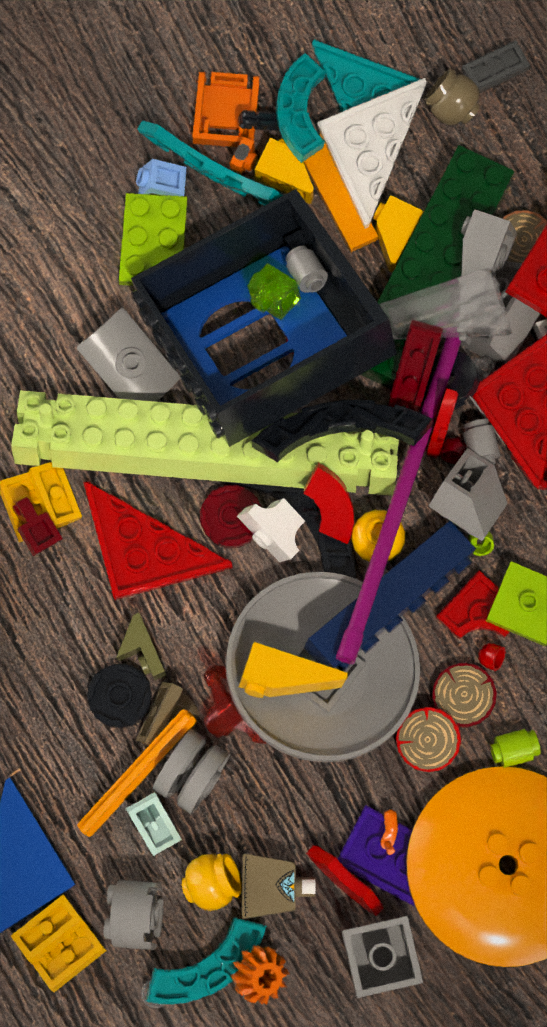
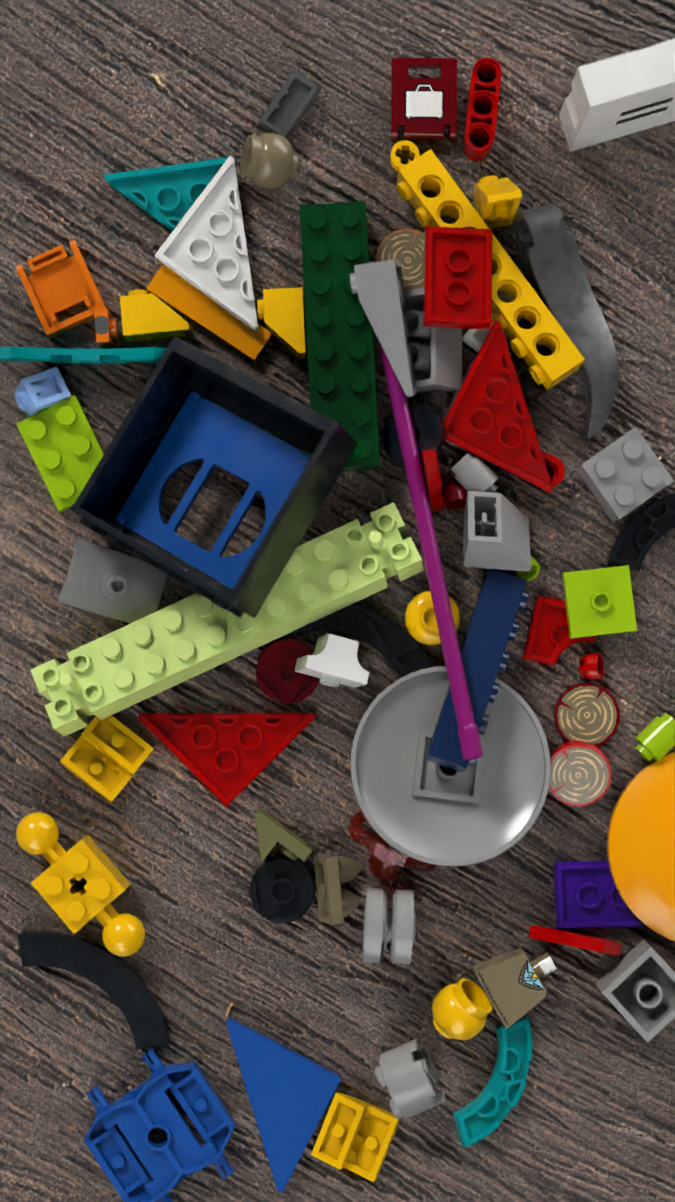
camera: 25 degrees left, 10 degrees up
(37, 531) = (123, 787): dark red plate -> none
(137, 772) = (340, 953): light orange axle -> none
(153, 823) = (378, 987): light aqua slope -> none
(260, 974) = (548, 1066): orange gear -> none
(261, 121) = (106, 280): black axle -> none
(273, 291) = (208, 445): clear neon green brick -> none
(279, 673) = (417, 800): yellow slope -> none
(292, 108) = (122, 253): teal tile -> none
(306, 269) = (227, 406): light grey brick -> none
(333, 501) = (375, 611): red tile -> none
(340, 417) = (339, 531): black tile -> none
(390, 833) = (591, 876): orange piece -> none
(415, 365) = (383, 454): dark red tile -> none
(460, 306) = (387, 373): clear slope -> none

